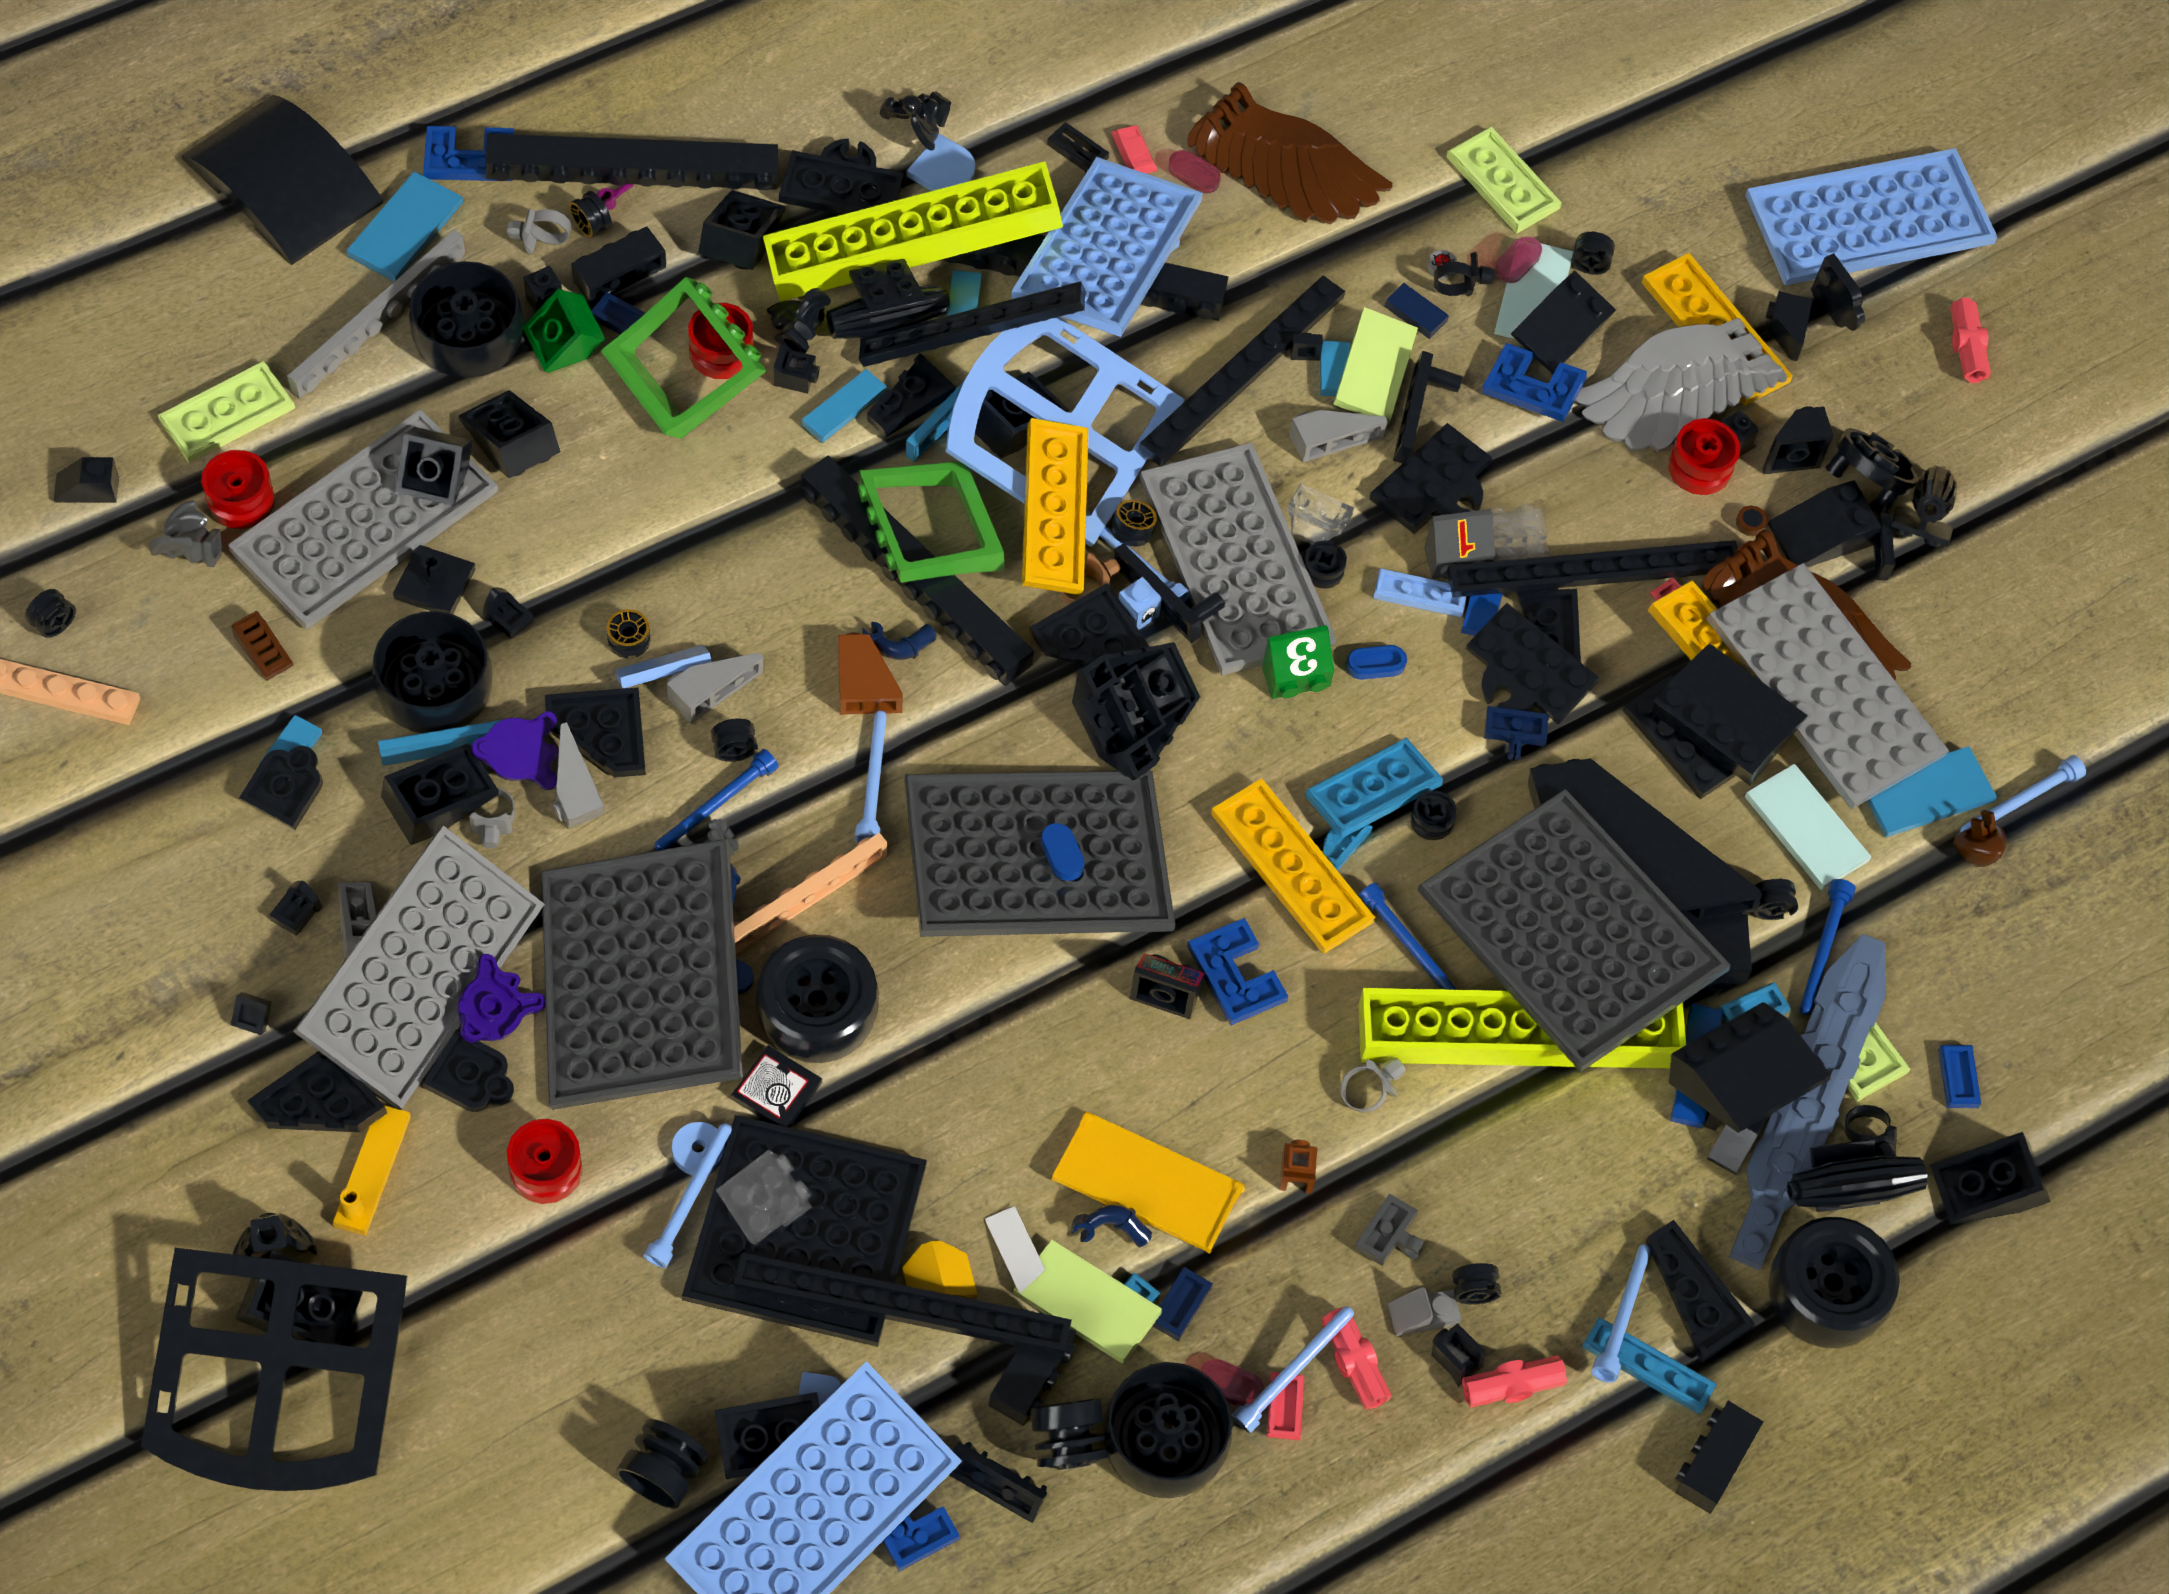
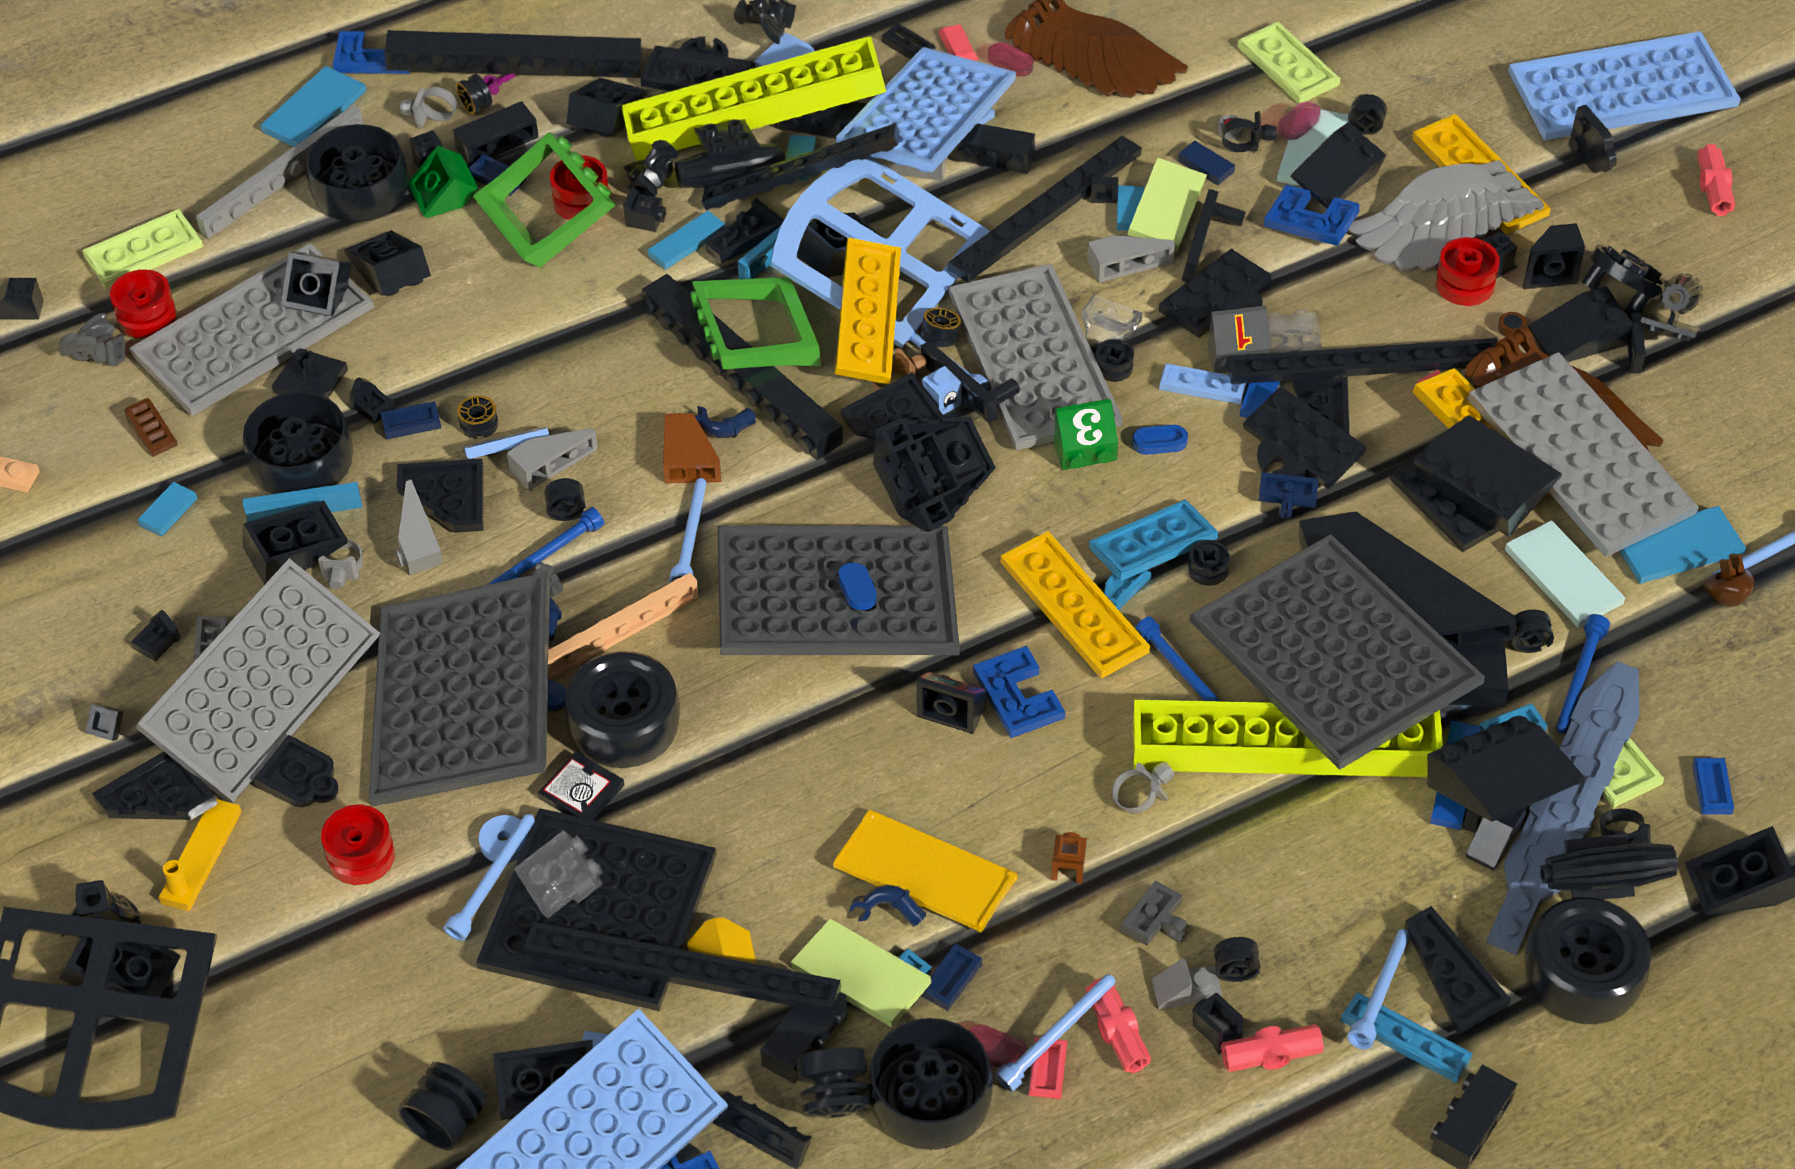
camera: 10 degrees right, 10 degrees down
(285, 176) = (216, 72): black slope -> none
(285, 785) = (157, 536): black plate -> none
(493, 1005) = (325, 714): dark purple tile -> none
(518, 750) = (369, 506): dark purple tile -> none
(553, 636) = (410, 420): none -> dark blue tile
(1015, 1247) = (795, 925): white sticker -> none
(1789, 322) = (1547, 166): black slope -> none

